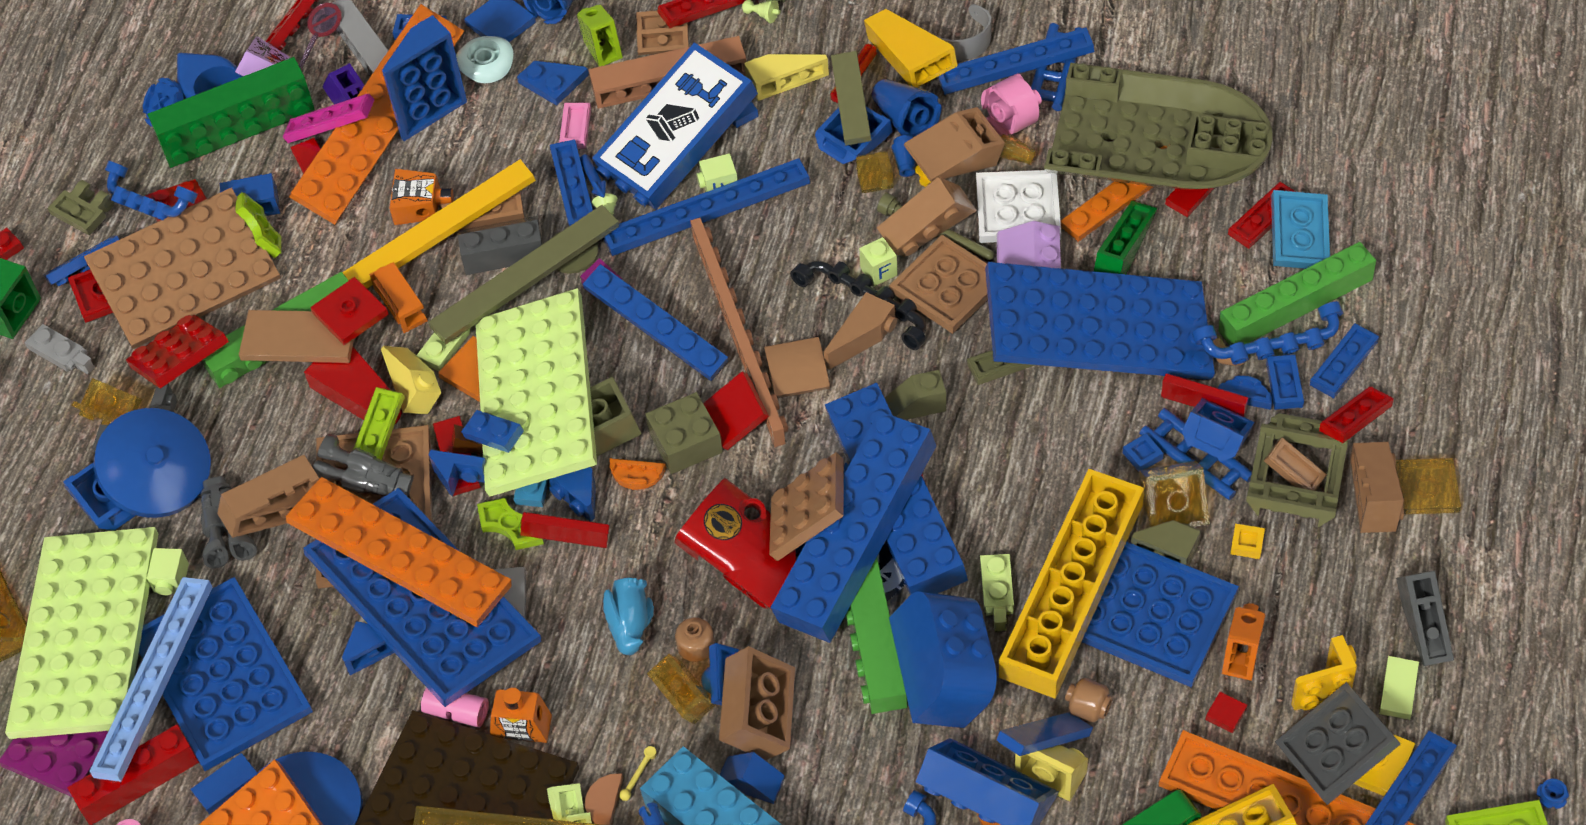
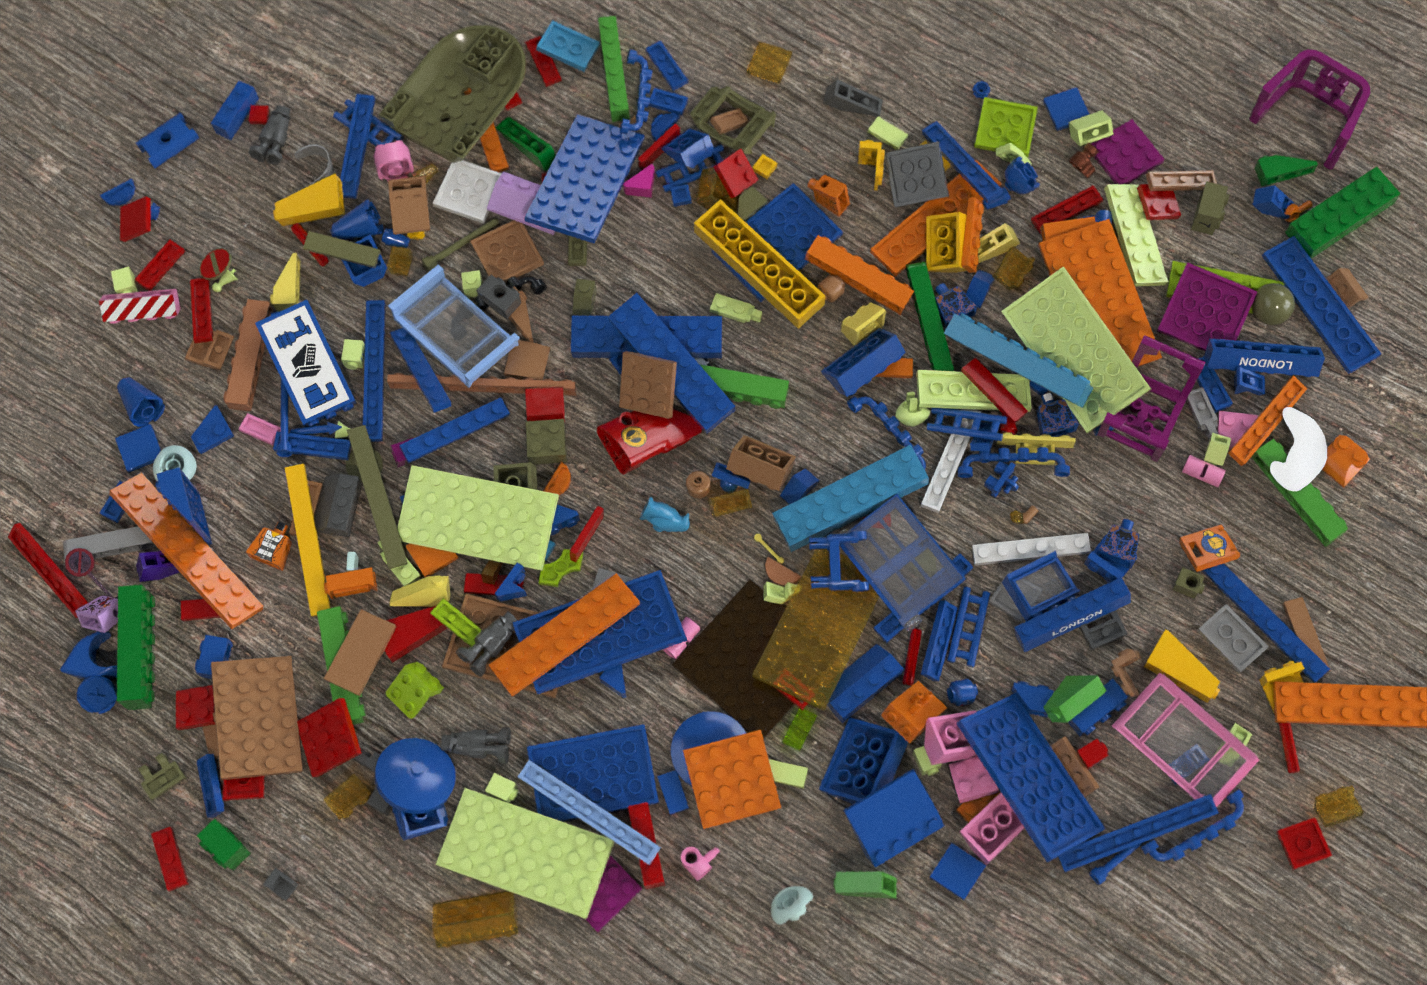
camera: 70 degrees left, 15 degrees up
(59, 350) = (280, 821): light grey hinge -> none
(143, 203) = (179, 734): blue bar -> none
(263, 232) = (254, 654): lime tile -> none
(267, 498) = (484, 704): medium nougat wedge -> none
(280, 419) = (413, 689): none -> lime bracket
(328, 118) = (178, 582): dark pink tile -> none
(349, 311) = (360, 612): red plate -> none
(426, 287) = (352, 561): none -> light aqua tile
(492, 431) = (501, 550): blue plate -> none
(520, 716) = (707, 602): orange torso -> none
(551, 151) = (284, 448): none -> blue piece
(597, 25) = (193, 386): lime torso -> none
(721, 248) = (421, 370): none -> blue plate
(801, 257) = (451, 326): none -> clear piece
(865, 289) = (504, 305): none -> dark grey brick
(926, 216) = (459, 243): medium nougat wedge -> none
(944, 658) = (777, 349): blue brick -> none
(1044, 733) = (851, 316): blue tile -> none
(1128, 728) = (859, 274): none -> orange brick
(1137, 398) = (641, 183): none -> dark pink slope
(1209, 502) = (735, 173): none -> red plate
(1226, 712) = (865, 224): red tile -> none
(1356, 414) = (710, 74): red tile -> none
(1376, 487) = (762, 85): medium nougat wedge -> none

